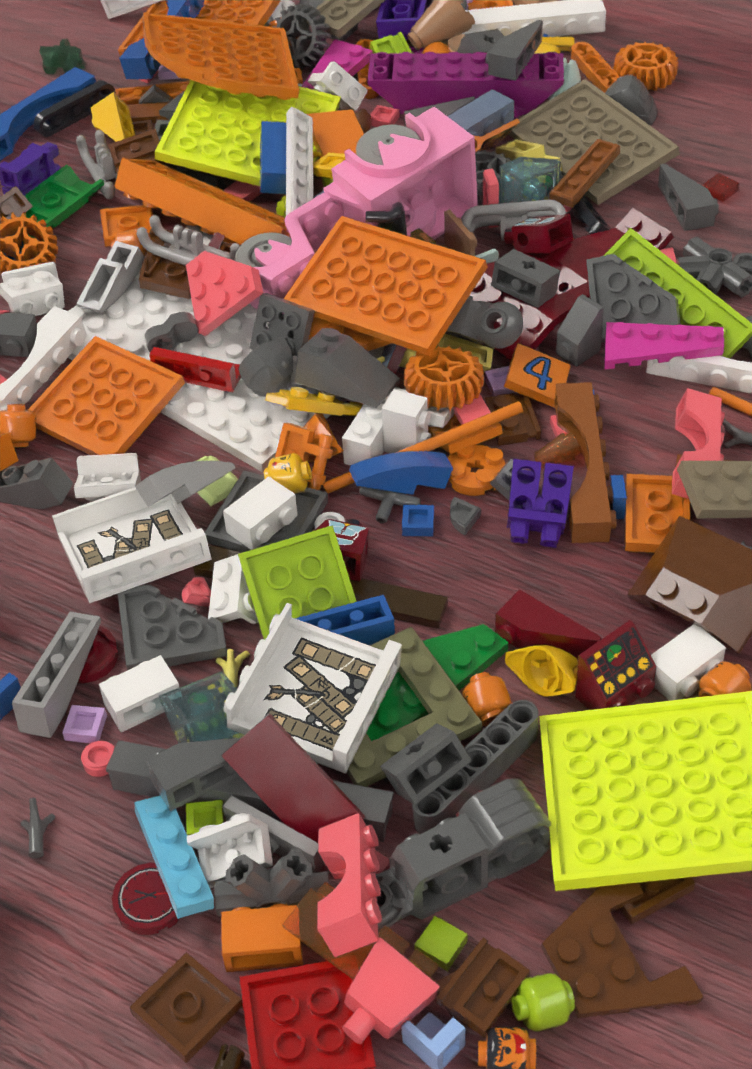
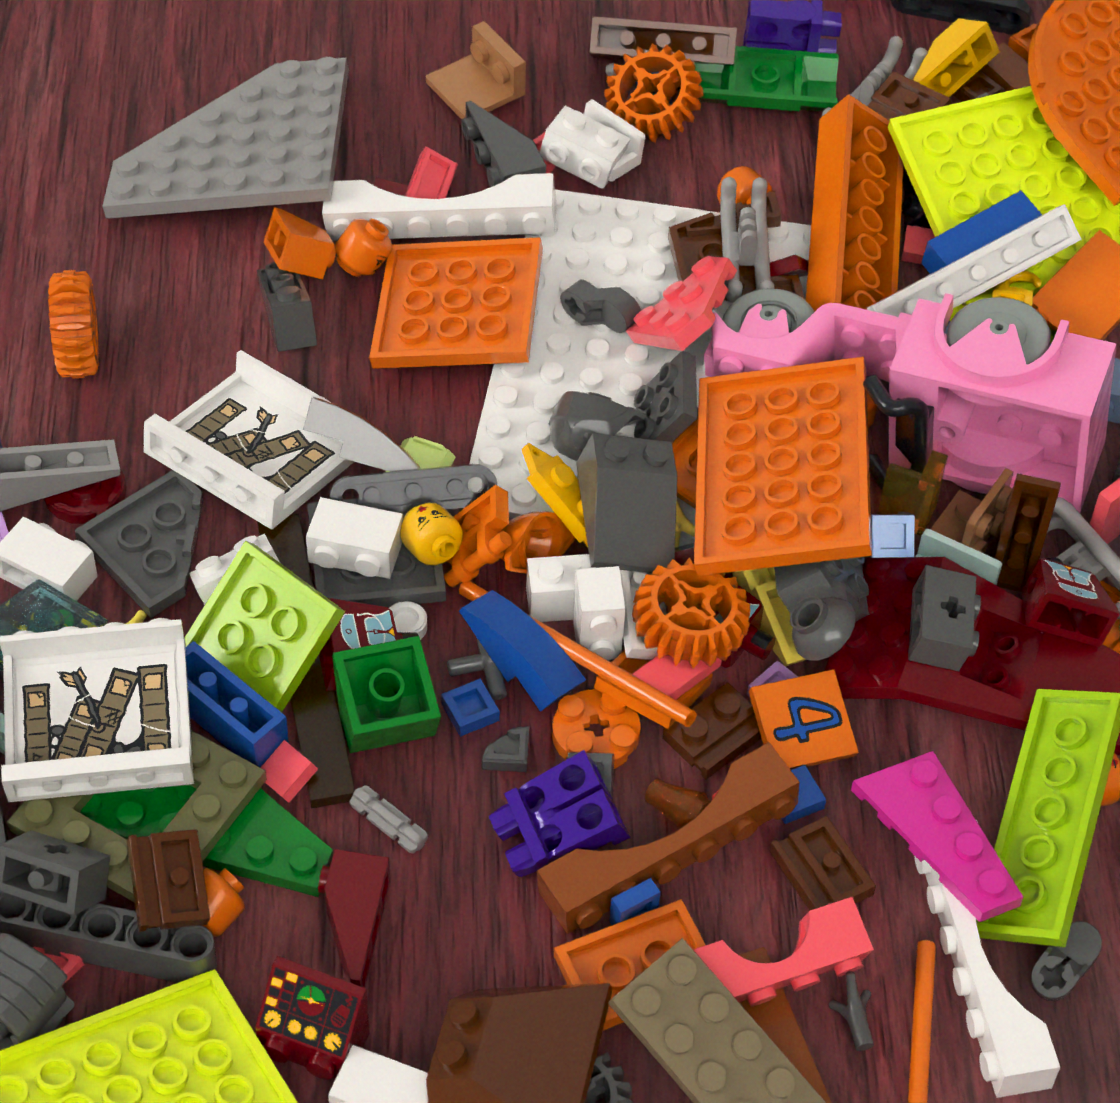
camera: 55 degrees right, 5 degrees up
(106, 475) = (342, 370): white bracket -> none
(111, 277) = (657, 201): light grey slope -> none
(123, 219) = (786, 166): orange plate -> none
(197, 592) = (218, 539): coral tile -> none
(198, 369) = (562, 353): red panel -> none
(245, 469) = (409, 488): none -> plate
(394, 545) = (385, 694): none -> green slope
(412, 617) = (287, 771): none -> coral tile
(475, 699) = (168, 880): none -> reddish brown plate
(477, 589) = (388, 819): none -> light grey axle
(490, 216) = (1024, 529): none -> reddish brown slope
(544, 669) = (294, 938): yellow hat -> none
(580, 331) = (907, 729): dark grey slope -> none
(629, 294) = (1003, 758): dark grey plate -> none
(639, 410) = (821, 865): none -> reddish brown plate

